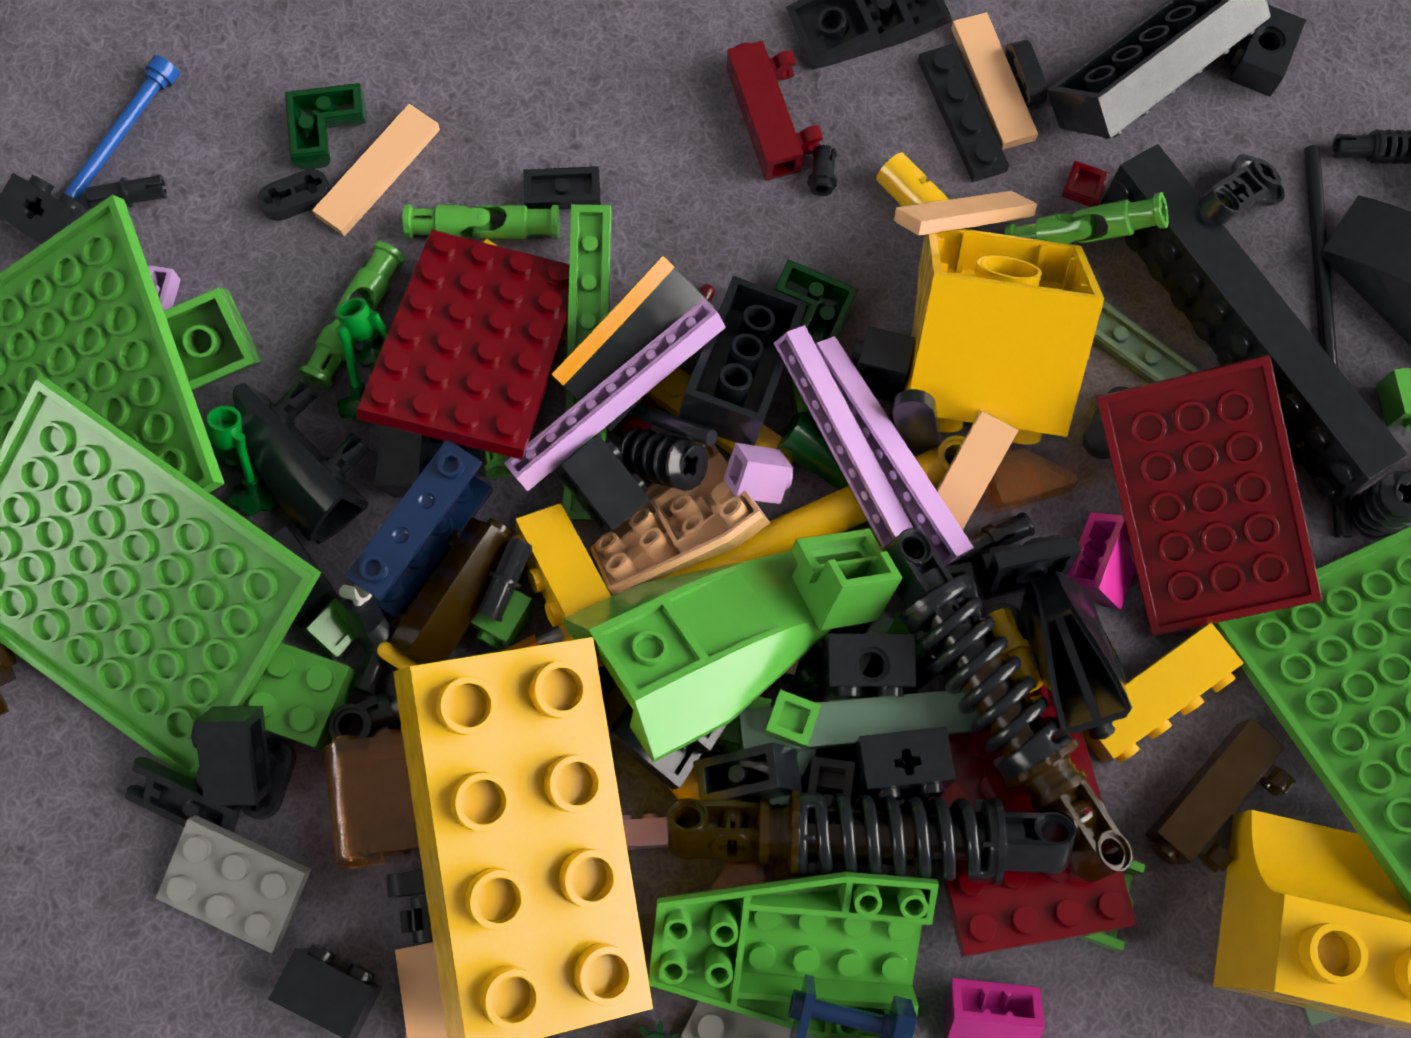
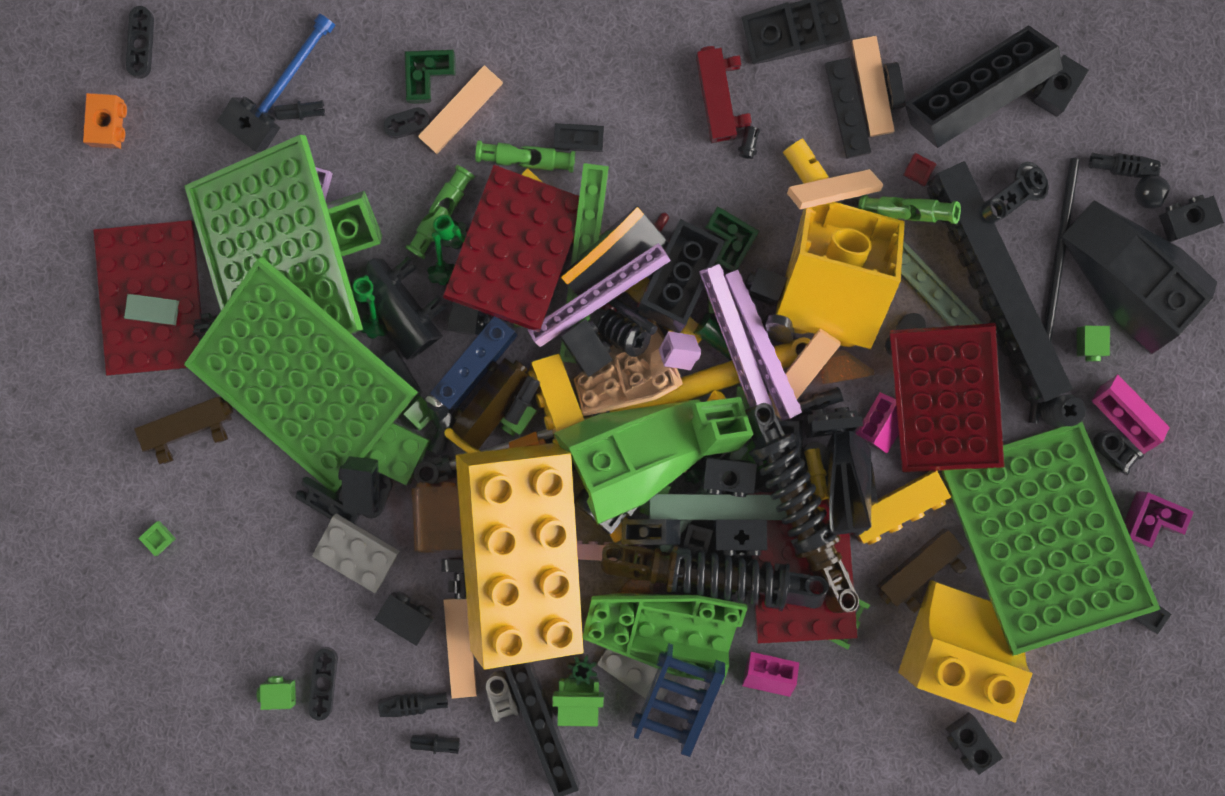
camera: 10 degrees right, 15 degrees up
(792, 719) = (679, 504): bright green plate -> none

